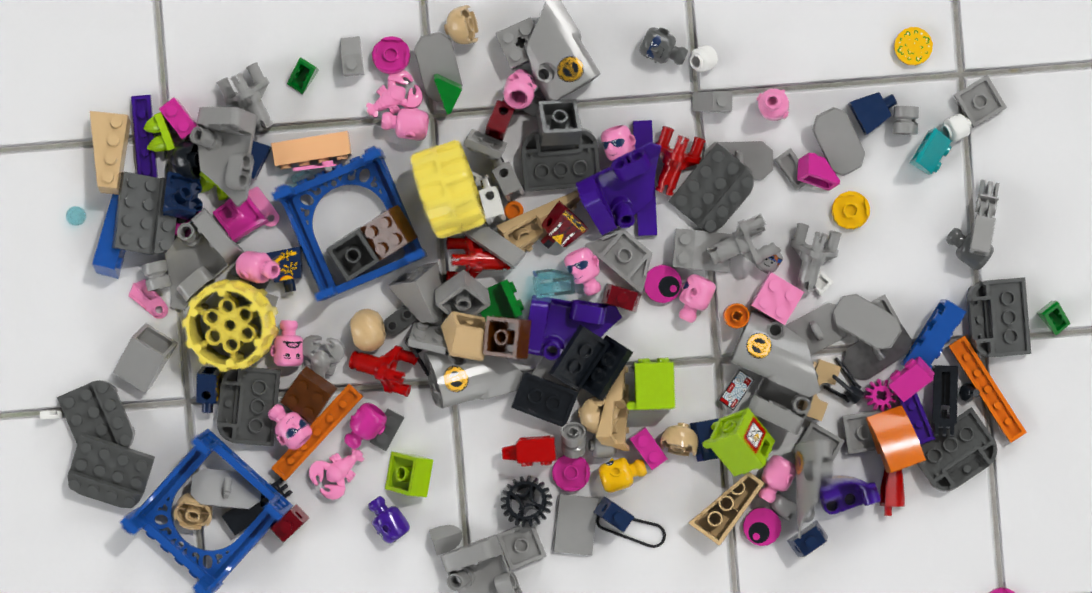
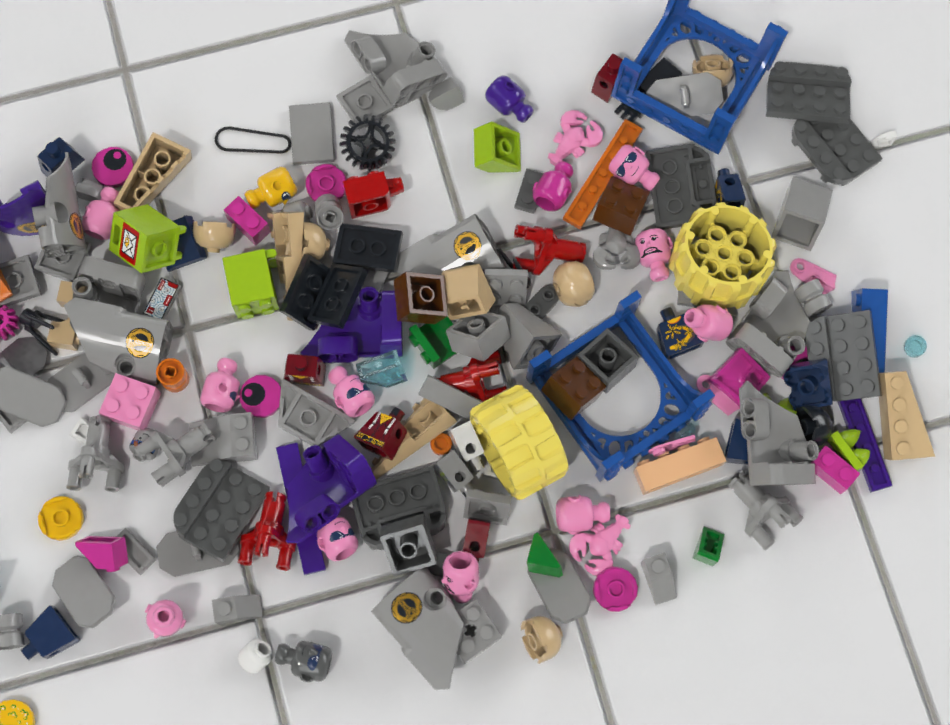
camera: 165 degrees right, 15 degrees down
(614, 514) = (267, 143): dark blue torso -> none

